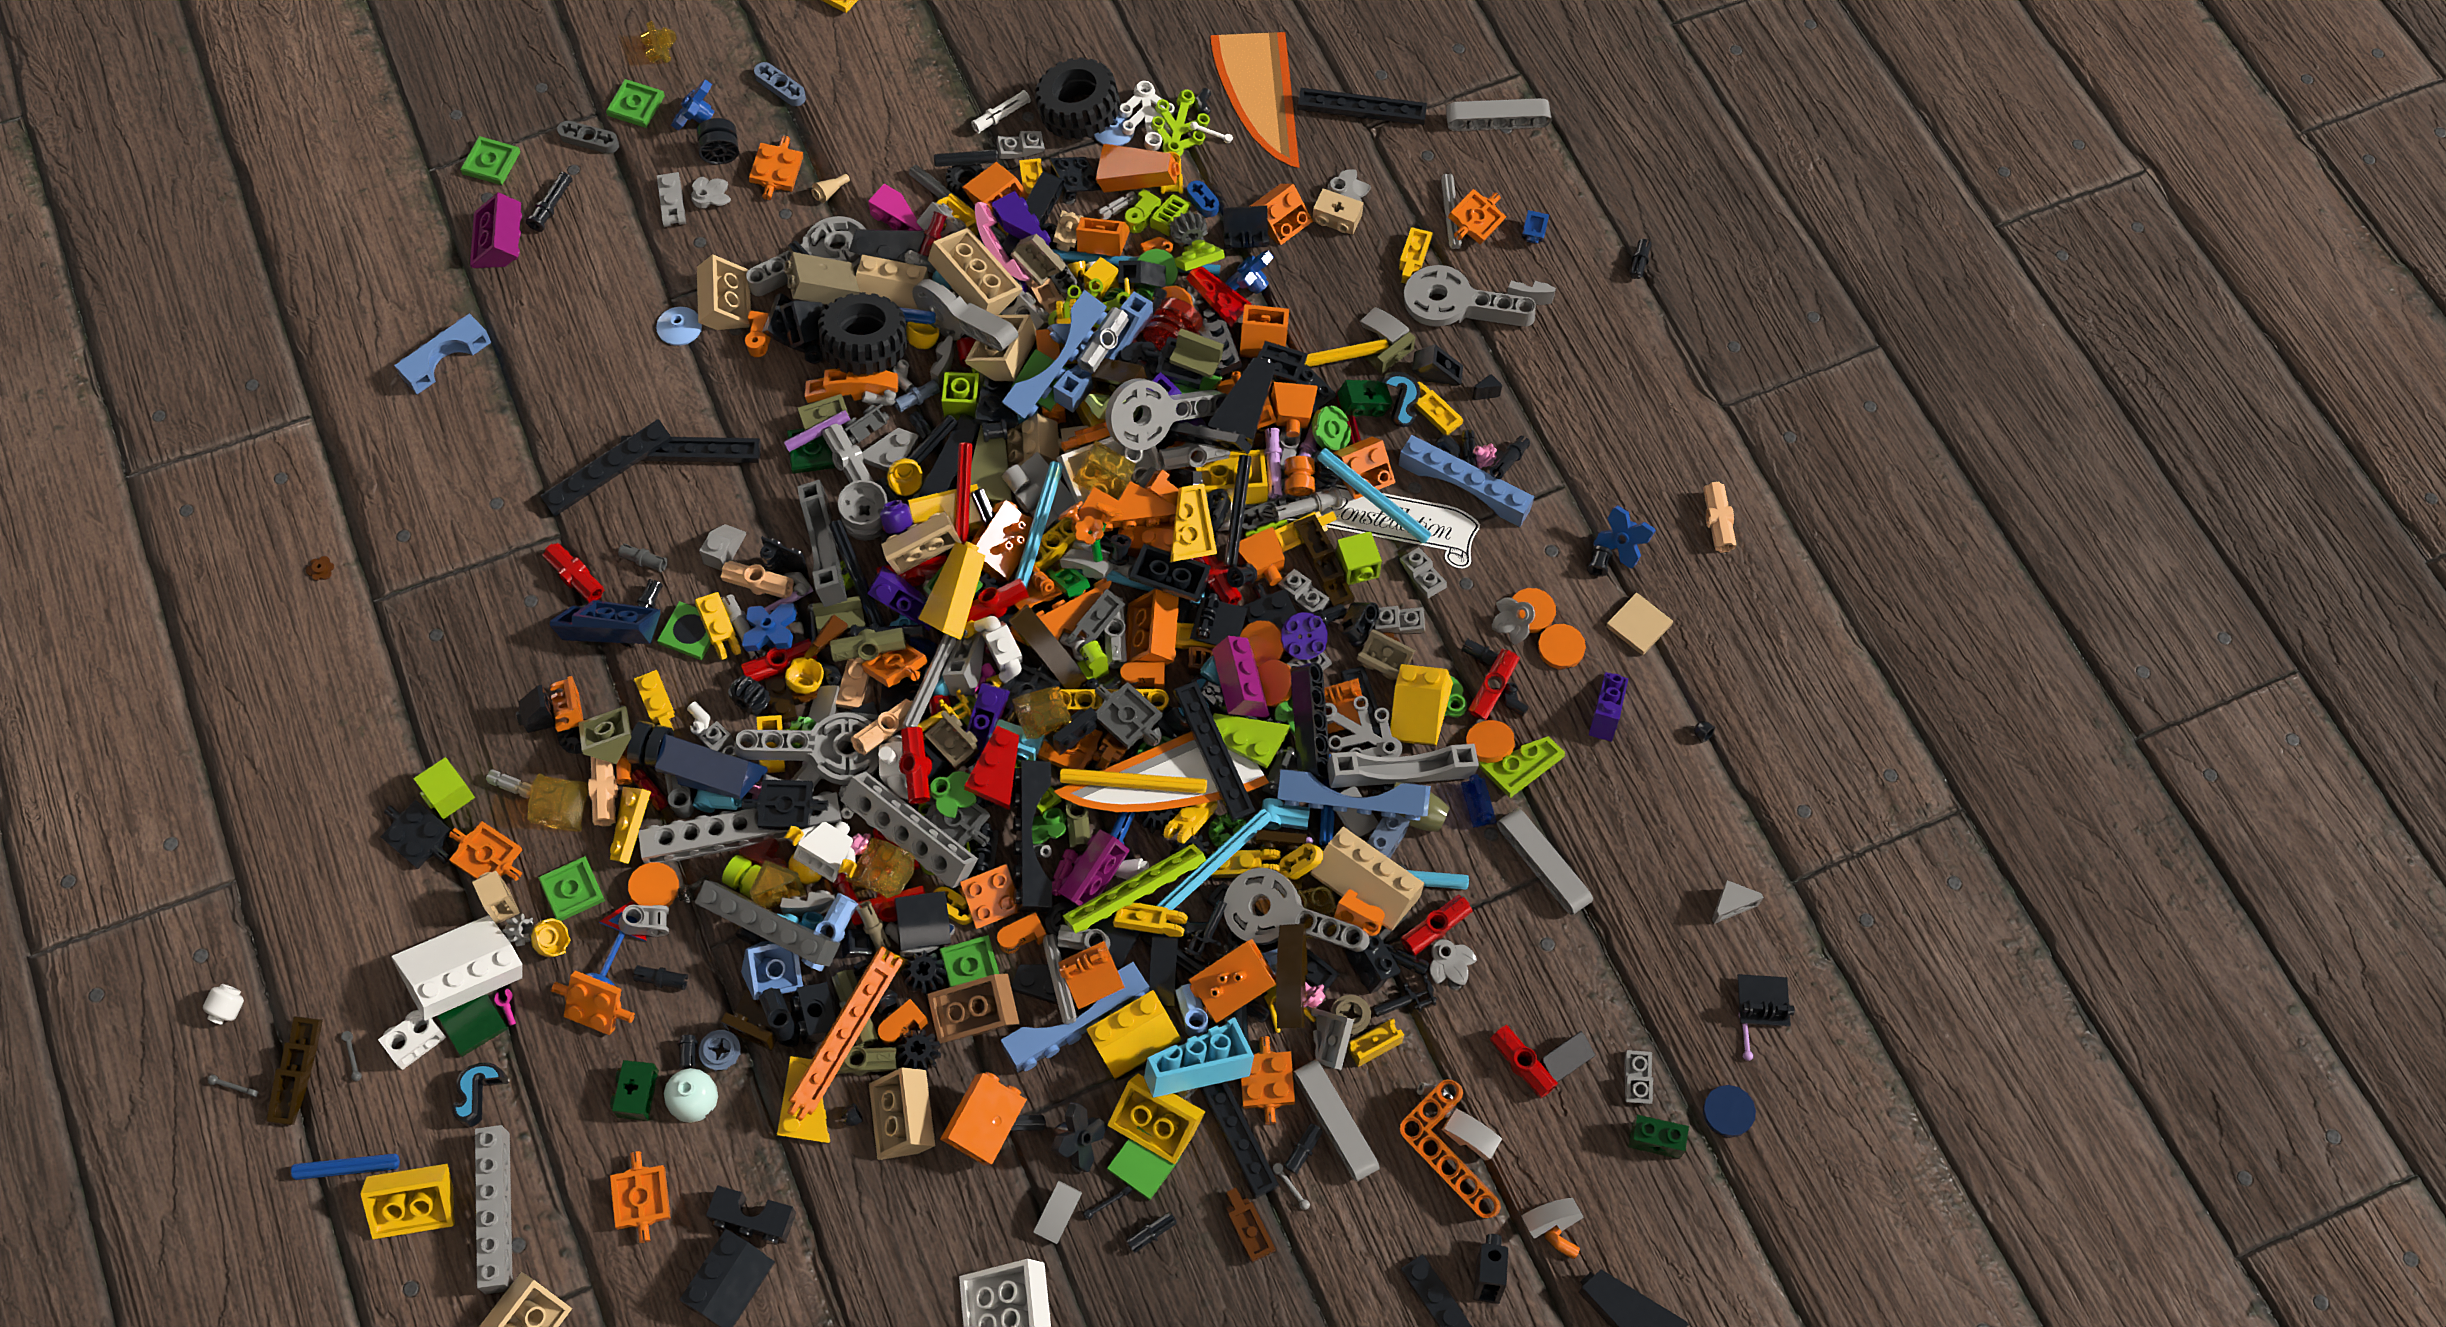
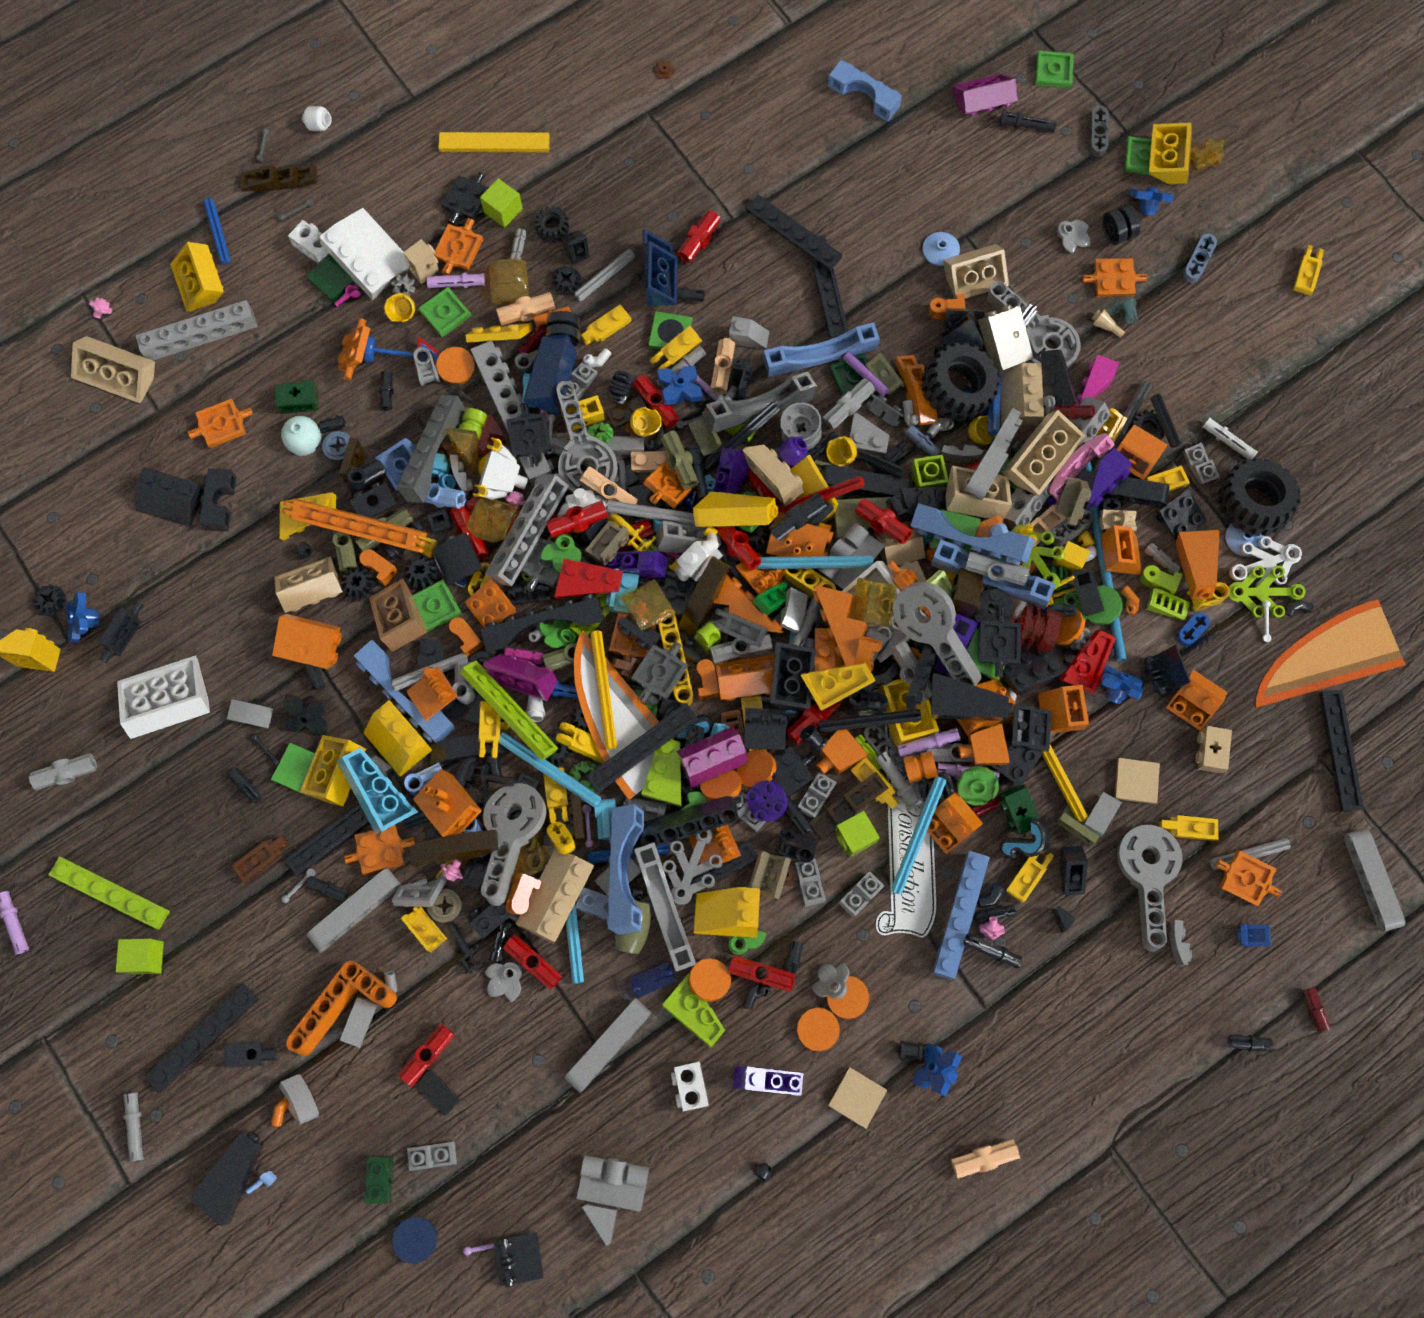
camera: 80 degrees right, 10 degrees up
(346, 787) = (493, 142): none -> yellow tile
(470, 1089) = (279, 291): black animal -> none
(499, 748) = (551, 214): none -> black tyre
(536, 855) = (456, 280): none -> lavender pin
(566, 704) = (585, 265): orange hinge -> none
(583, 683) = (604, 275): none -> light grey axle
(606, 735) = (561, 294): olive slope -> none
(642, 557) = (723, 280): dark grey pin -> none
(645, 72) = (1170, 152): none -> yellow slope
(671, 199) = (1058, 209): light grey plate -> none
(772, 471) = (789, 359): none -> medium blue arch
(822, 162) = (1129, 306): none -> clear light blue pin
(830, 631) = (684, 429): reddish brown slope -> none
(873, 925) = (447, 525): dark tan pin -> none
(984, 524) = (797, 516): none -> black piece
(1009, 445) = (883, 521): none -> red piece
(1090, 529) = (804, 600): orange plant -> none
(1119, 552) = (810, 631): black bush -> none
(1188, 228) = (1152, 622): dark grey gear -> none
(1197, 353) = (1005, 650): olive panel -> none
(1198, 254) = (1127, 640): lime plate -> none
(1349, 185) = (1247, 758): light grey plate -> none
(1354, 289) = (1137, 781): none -> tan tile
(1602, 777) = (695, 1085): none -> white brick
(1617, 196) = (1316, 1009): none -> dark red axle
(1636, 1272) = (266, 1178): none -> light blue hand
(1694, 885) = (612, 1183): none -> light grey panel

